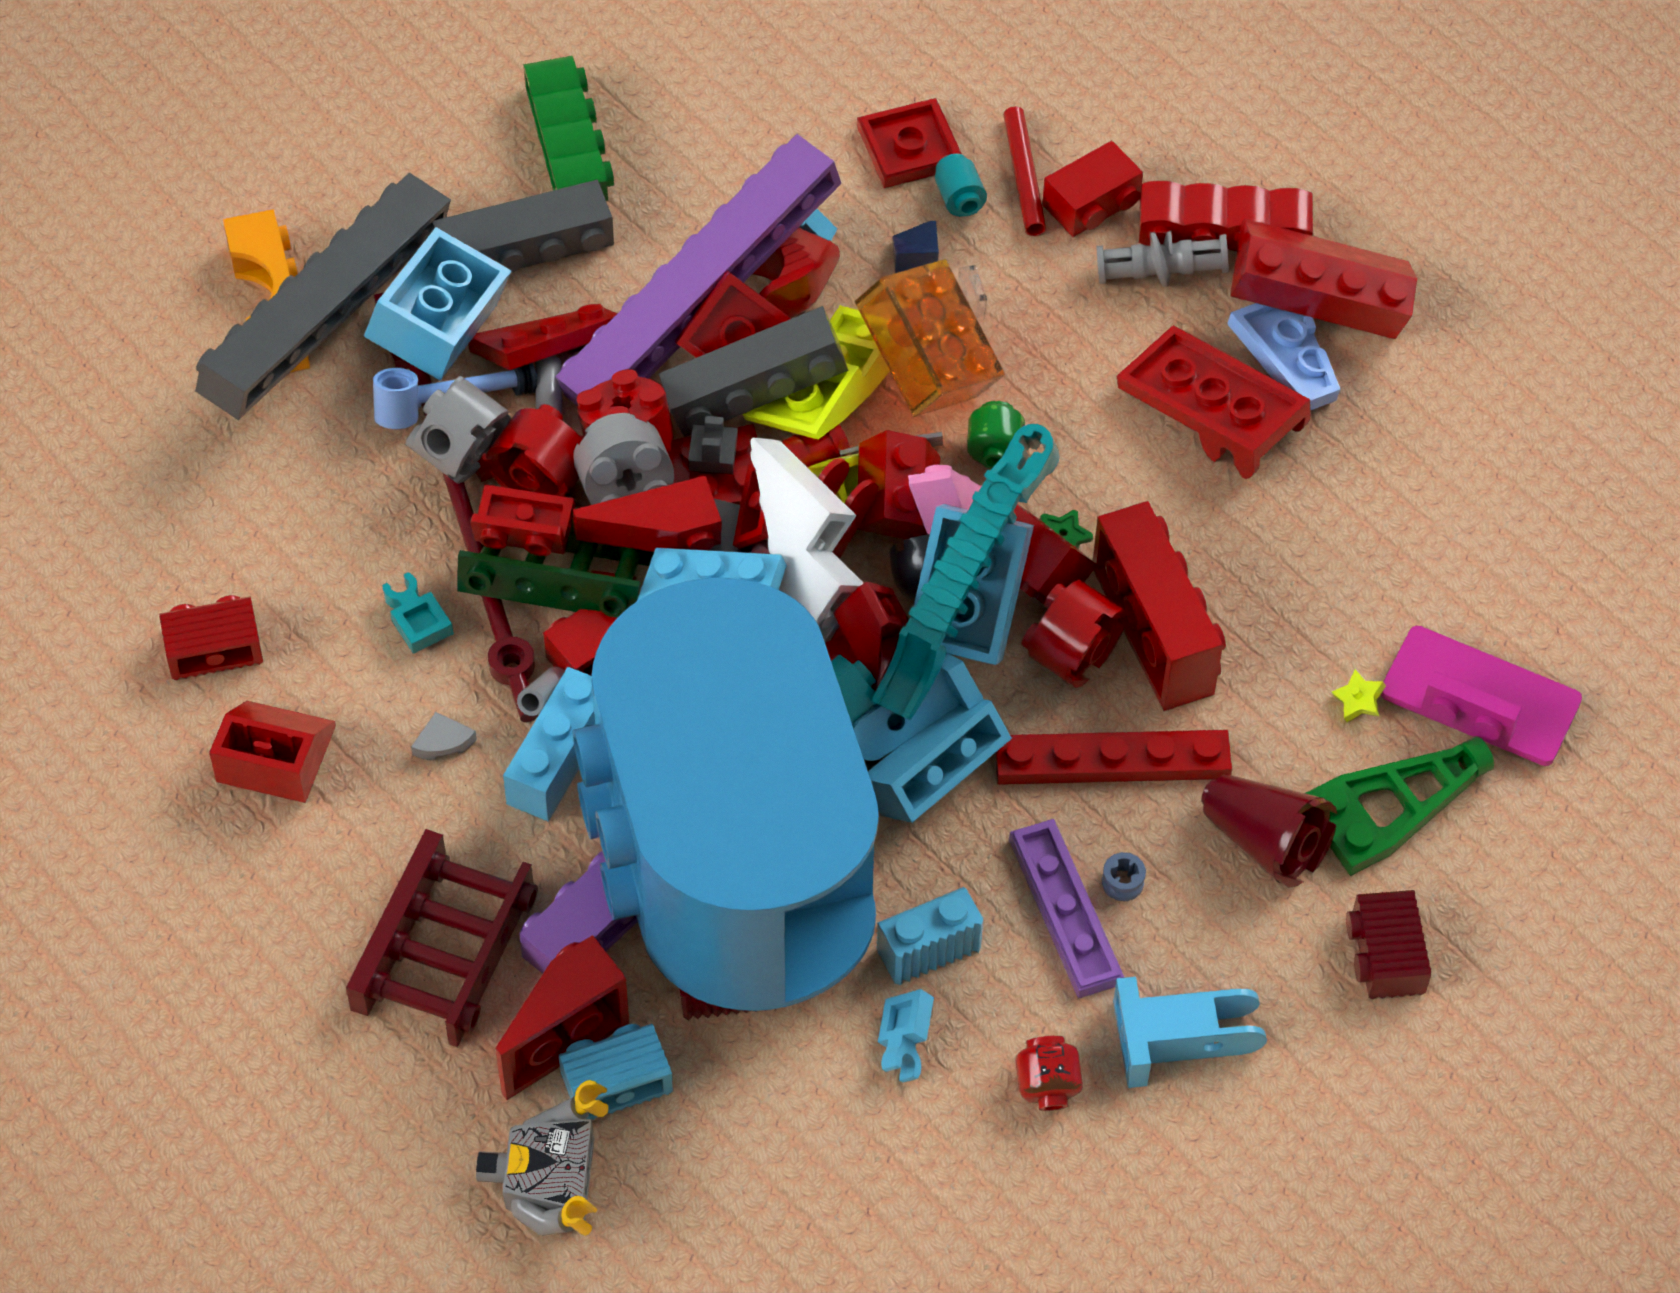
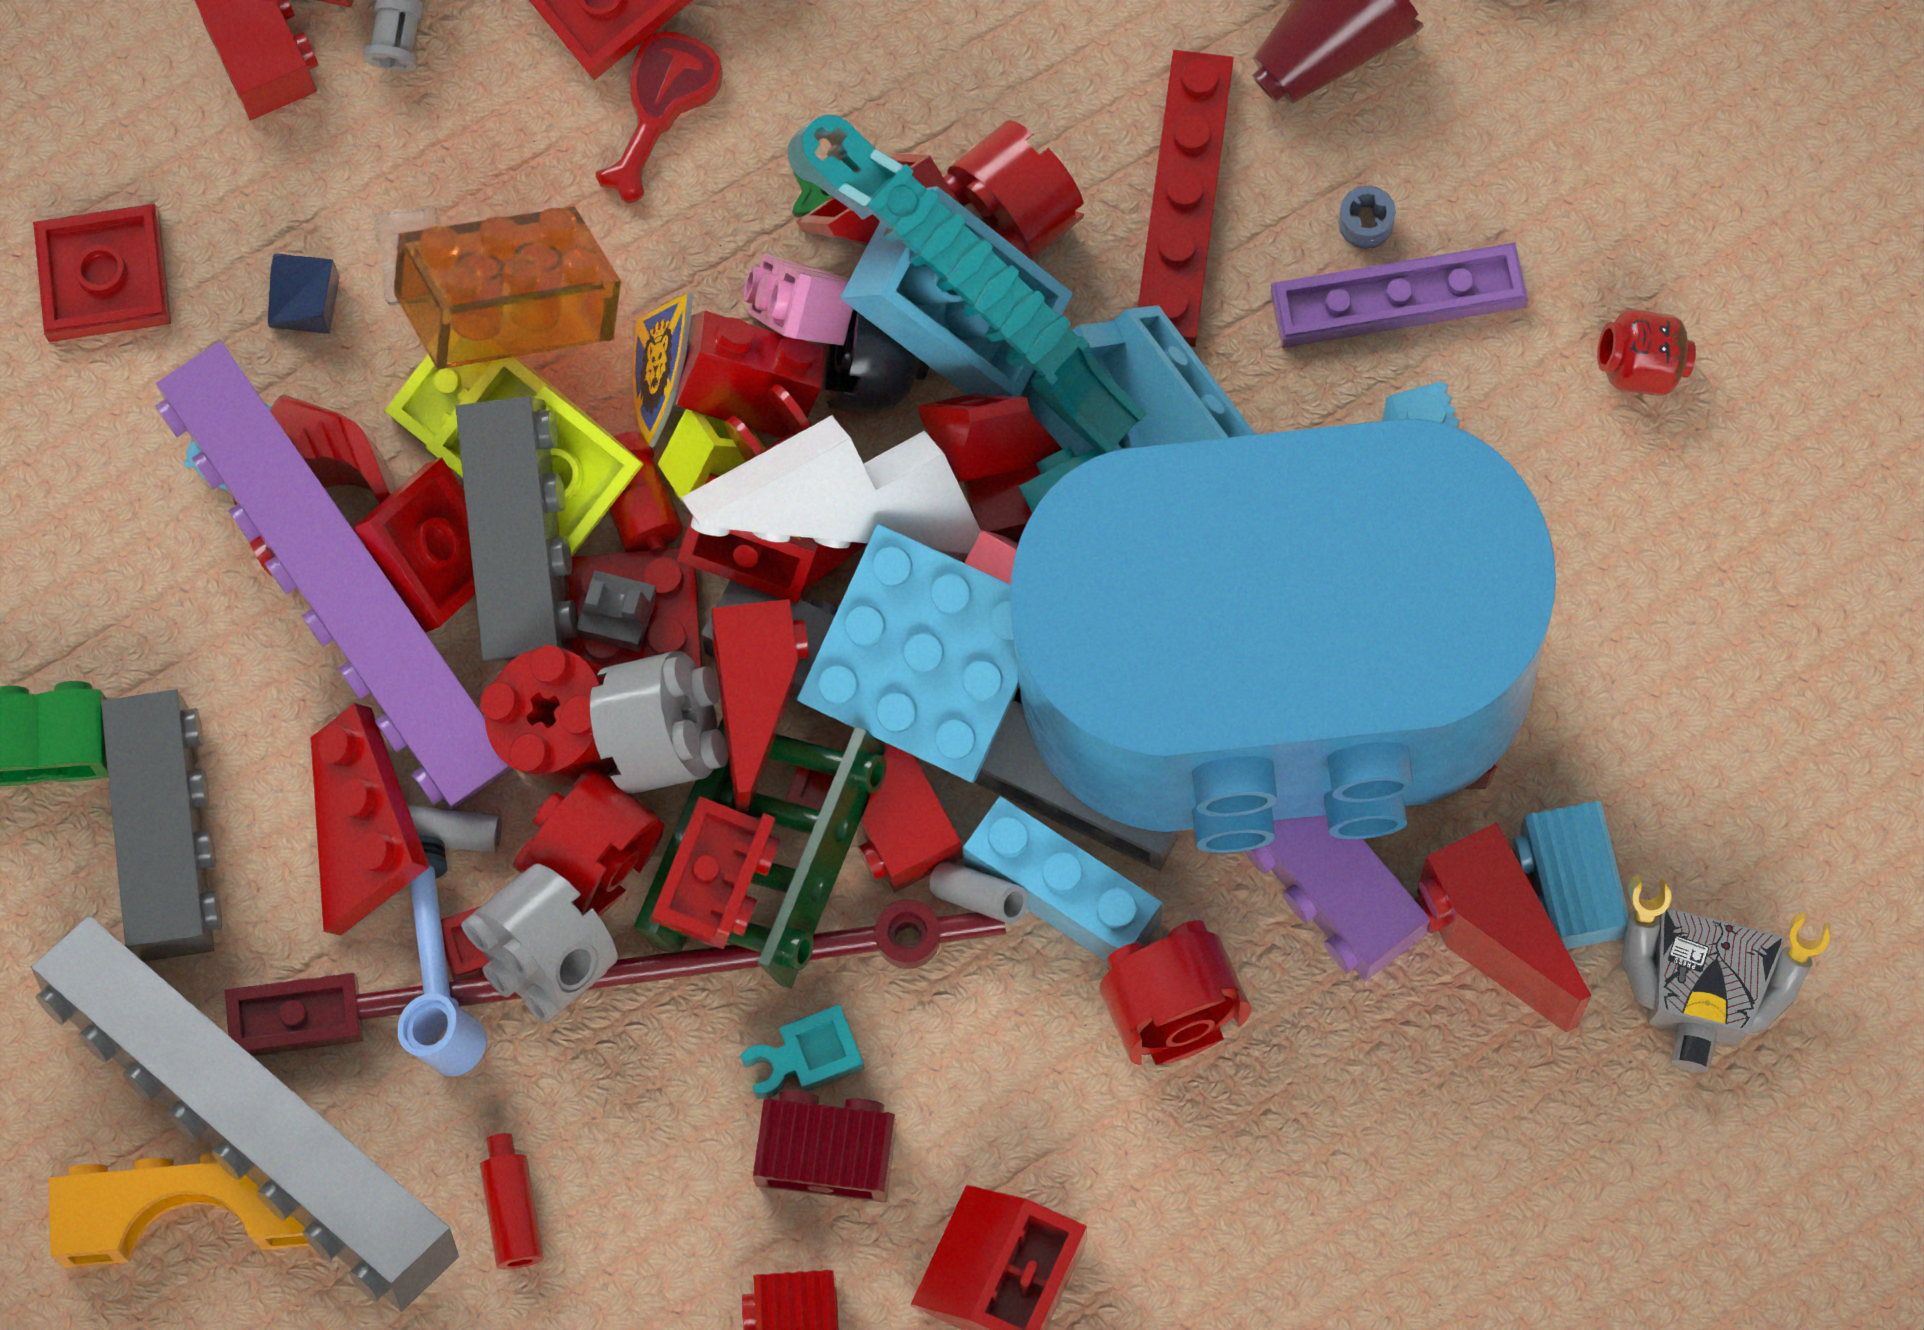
camera: 75 degrees left, 15 degrees up
(291, 465) = (510, 1205): none -> red cylinder
(349, 633) = (825, 1147): none -> dark red brick
(412, 903) = (1341, 1139): dark red fence -> none
(437, 303) = (297, 949): medium azure brick -> none
(442, 737) = (1013, 1043): light grey tile -> none
(481, 815) = (1173, 994): none -> red brick
(902, 1027) = (1567, 516): medium azure plate -> none
(960, 185) = (206, 215): teal brick -> none
(991, 431) = (660, 241): green head -> none
(1024, 171) = (191, 129): red piece -> none
(1128, 429) = (666, 79): none -> red piece
(1165, 612) = (962, 85): red brick -> none
(1181, 1027) = (1602, 203): medium azure piece -> none

